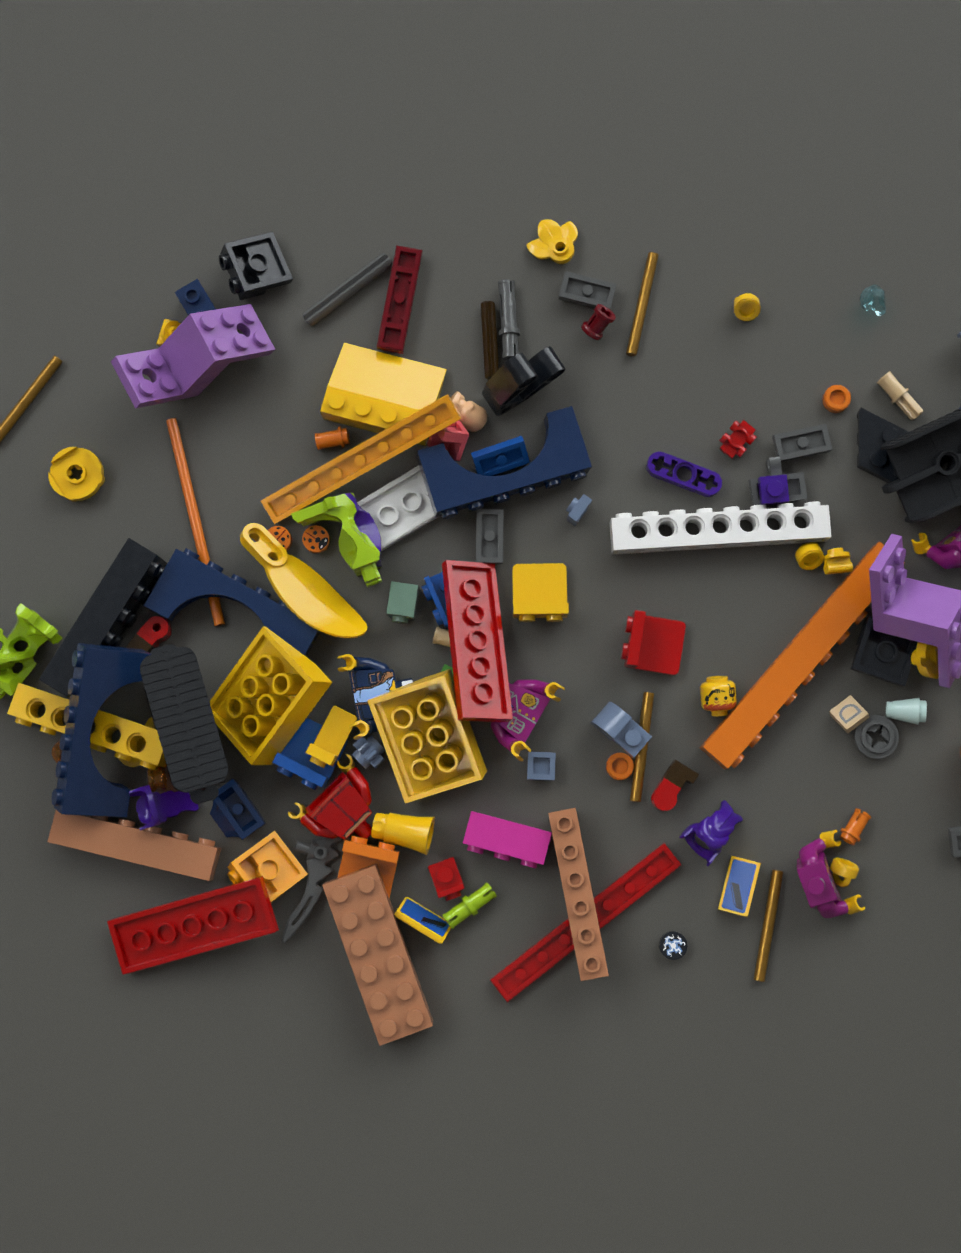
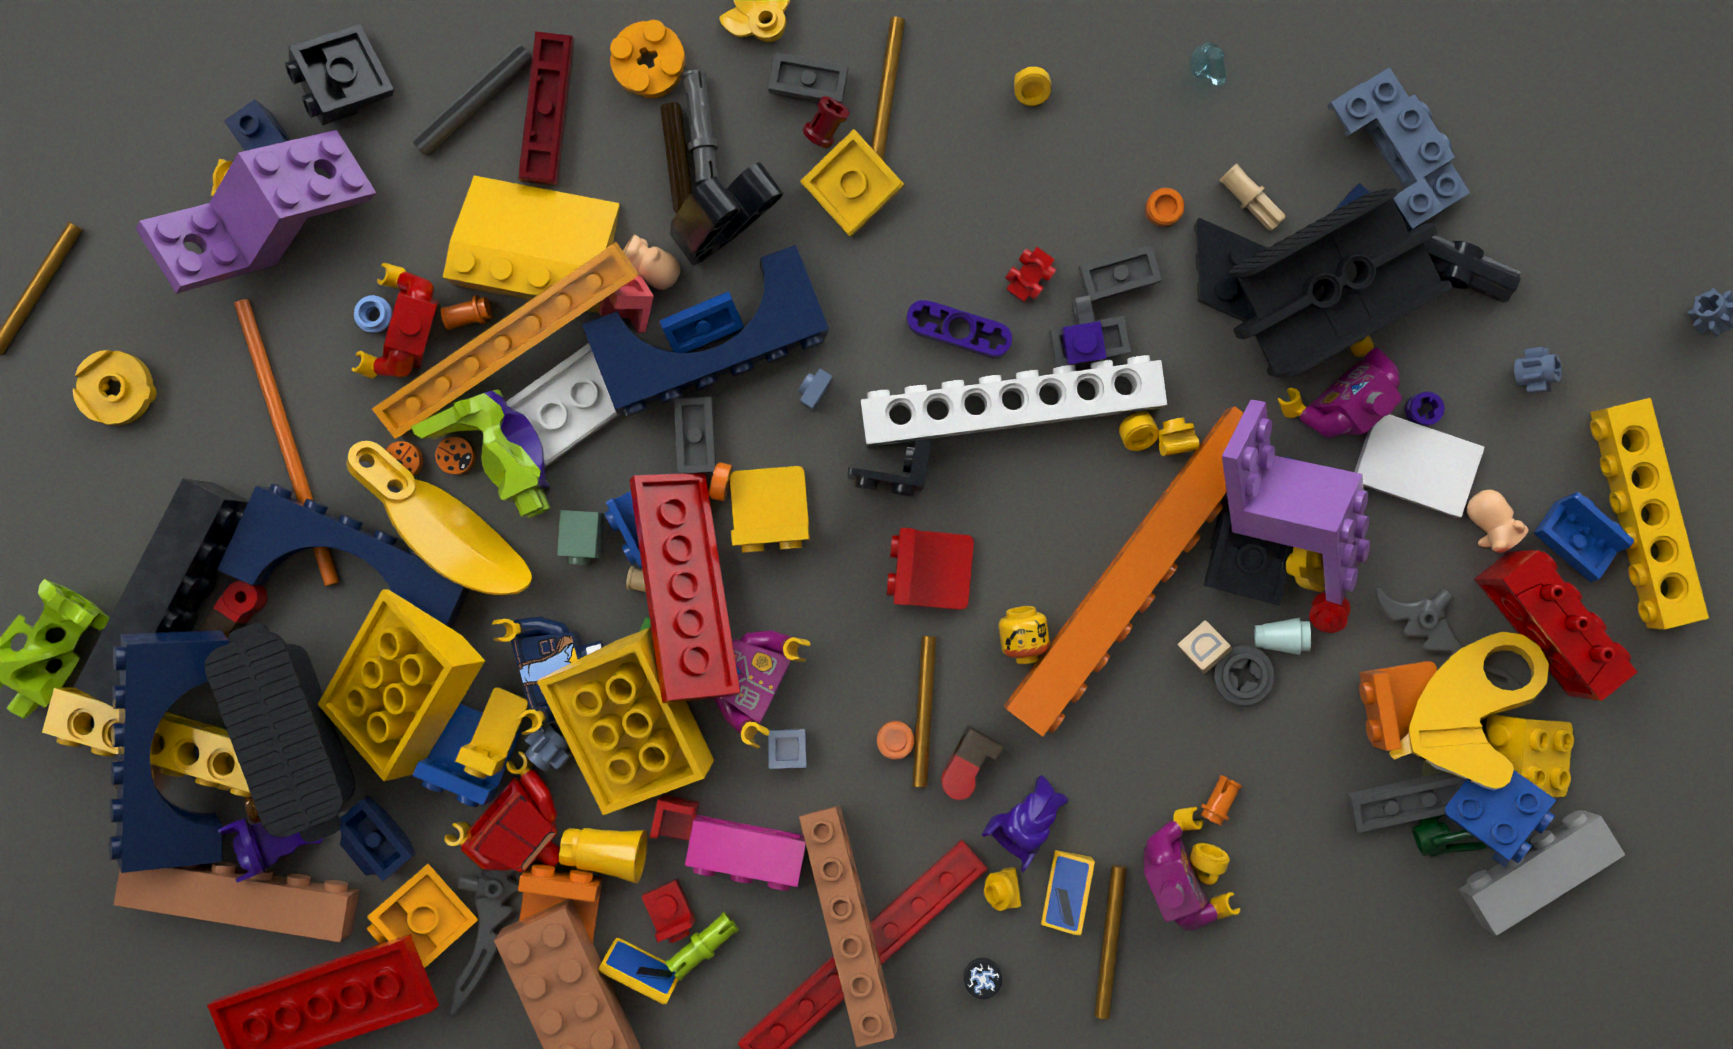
camera: 10 degrees left, 5 degrees up
(265, 427) = (364, 307): none -> light blue plate
(291, 447) = (408, 326): none -> red torso
(456, 811) = (674, 817): none -> red panel
(476, 255) = (653, 38): none -> light orange plate
(506, 570) = (720, 481): none -> orange tile
(614, 366) = (852, 183): none -> yellow tile
(620, 728) = (892, 692): sand blue brick -> none
(638, 579) = (915, 463): none -> black bracket
(691, 880) = (1002, 889): none -> yellow plate
(941, 697) = (1329, 616): none -> red wheel

